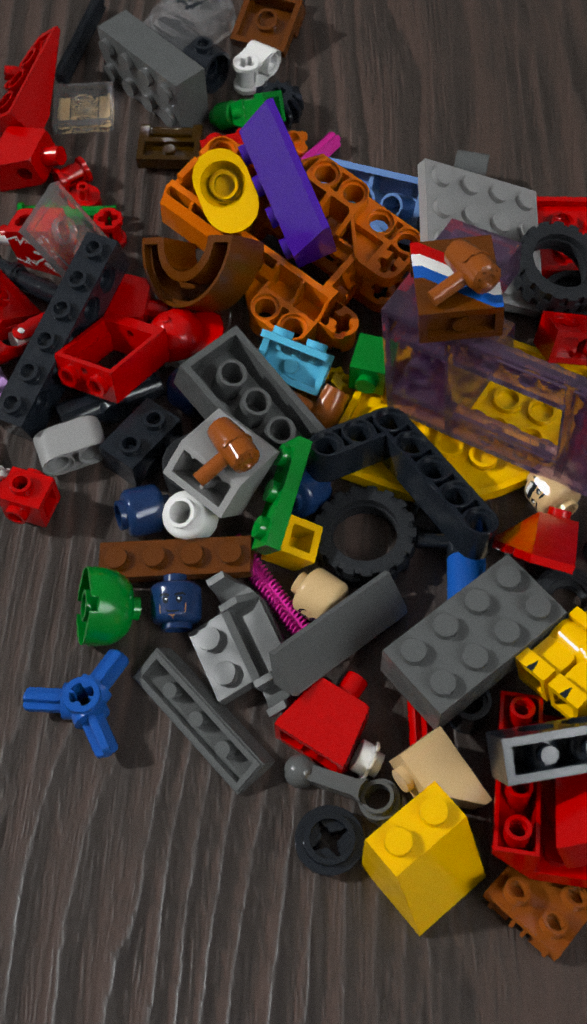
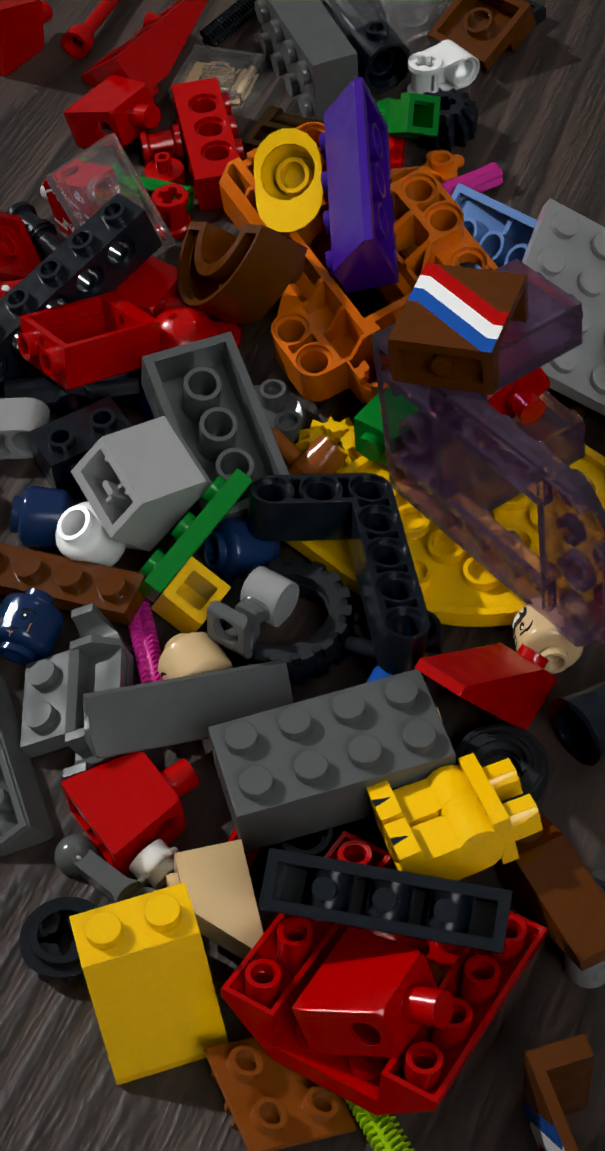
camera: 25 degrees right, 10 degrees down
(112, 167) = (207, 136): none -> red brick
(233, 449) = (149, 460): dark orange piece -> none
(297, 363) = (294, 399): medium azure bracket -> none
(352, 531) = (263, 598): none -> leg
(470, 267) = (469, 301): dark orange piece -> none

